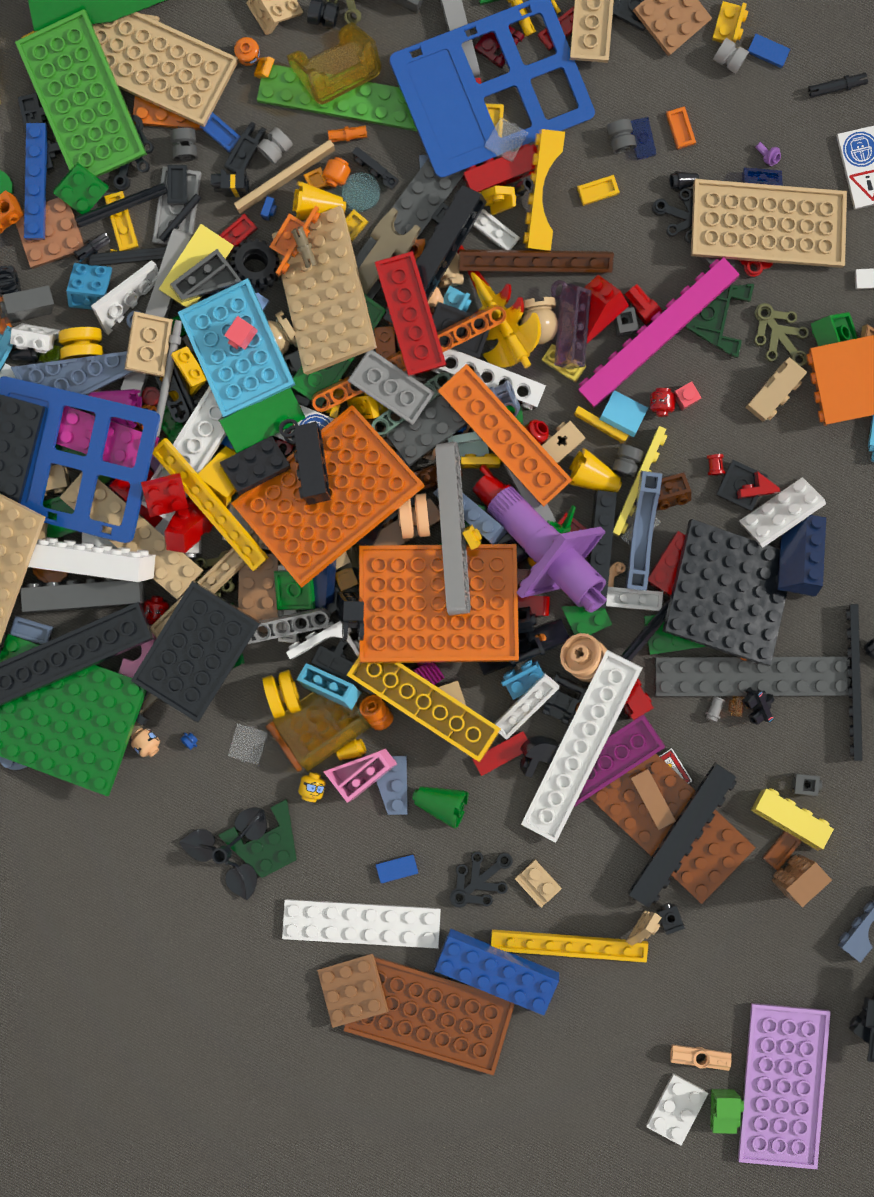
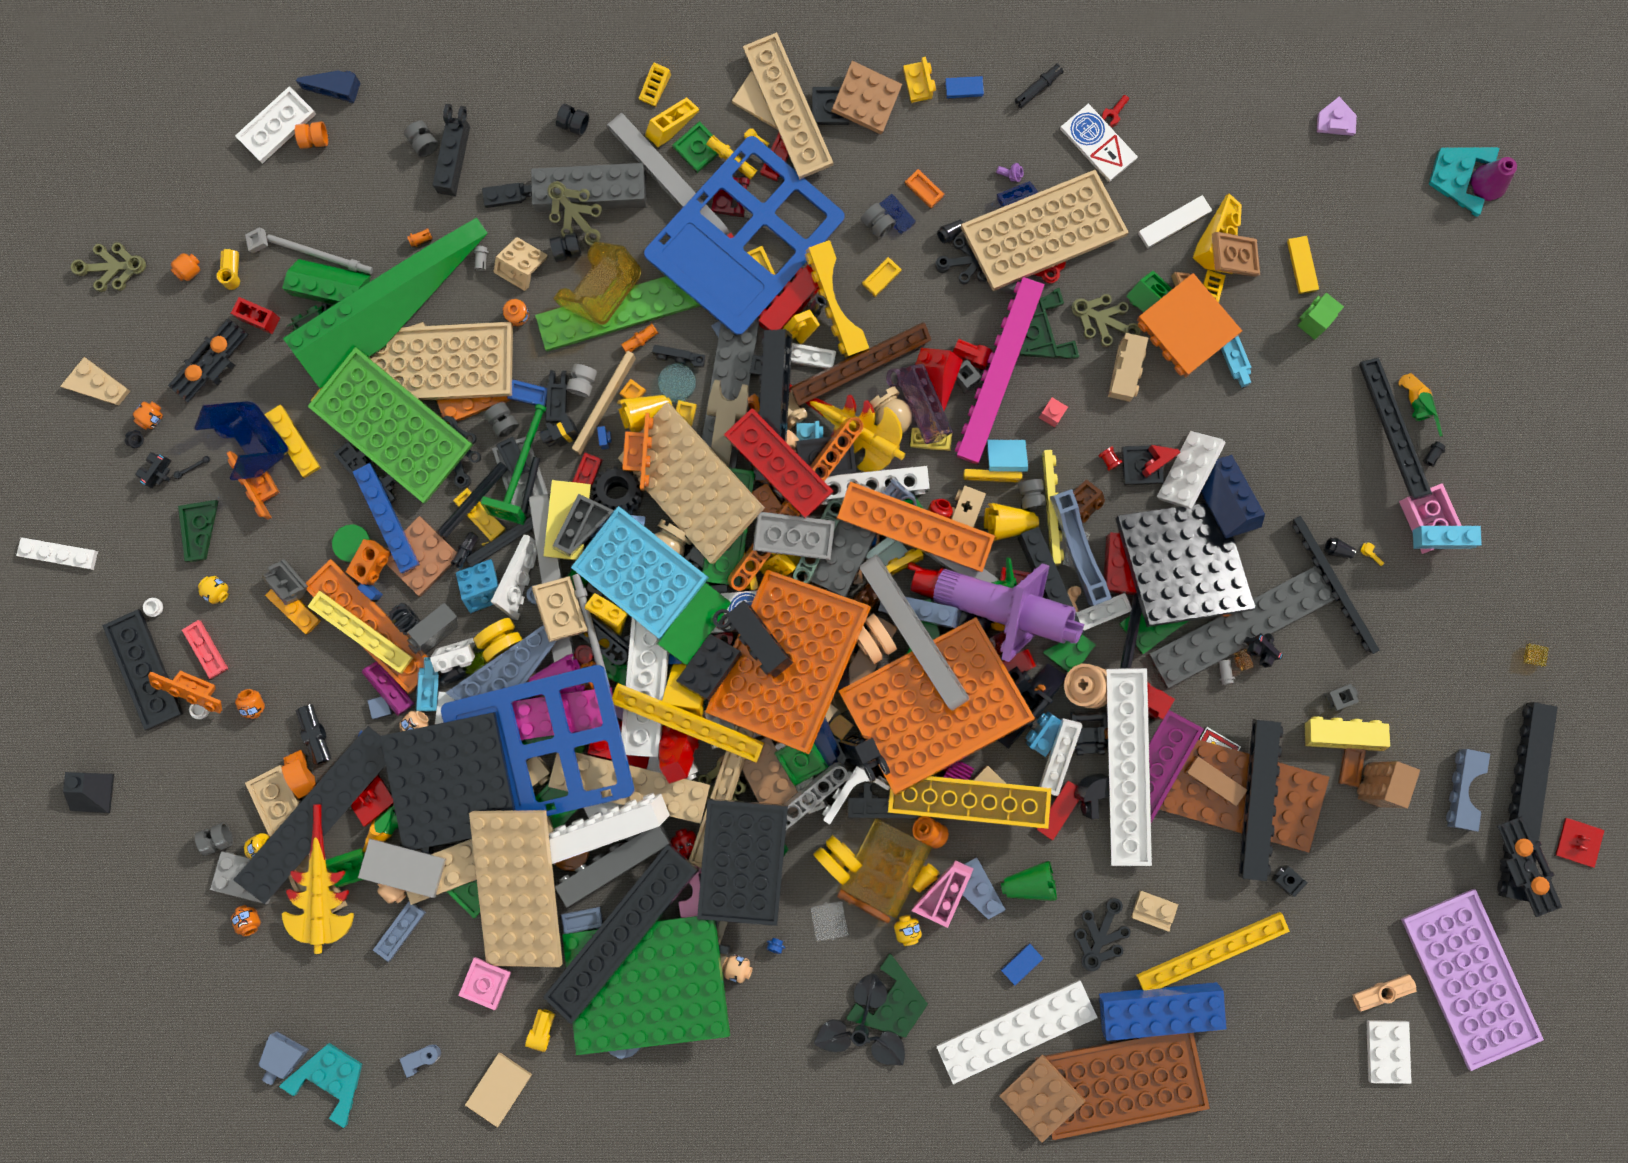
camera: 20 degrees left, 5 degrees down
(80, 189) = (429, 504): green plate -> none
(145, 228) = (504, 508): none -> green tile
(164, 495) = (642, 735): red plate -> none
(240, 333) = (637, 557): coral brick -> none
(264, 70) = (539, 320): light orange tile -> none
(304, 247) = (654, 453): dark tan pin -> none
(328, 686) = (876, 830): medium azure brick -> none
(336, 172) = (647, 376): orange head -> none
(472, 536) = (935, 630): yellow plate -> none
(506, 139) = (781, 273): clear piece -> none
(644, 927) = (1273, 899): tan wing -> none
(662, 402) = (1035, 428): red head -> none
(725, 1111) = (1433, 1030): bright green brick -> none
(730, 55) = (935, 106): light grey wheel -> none

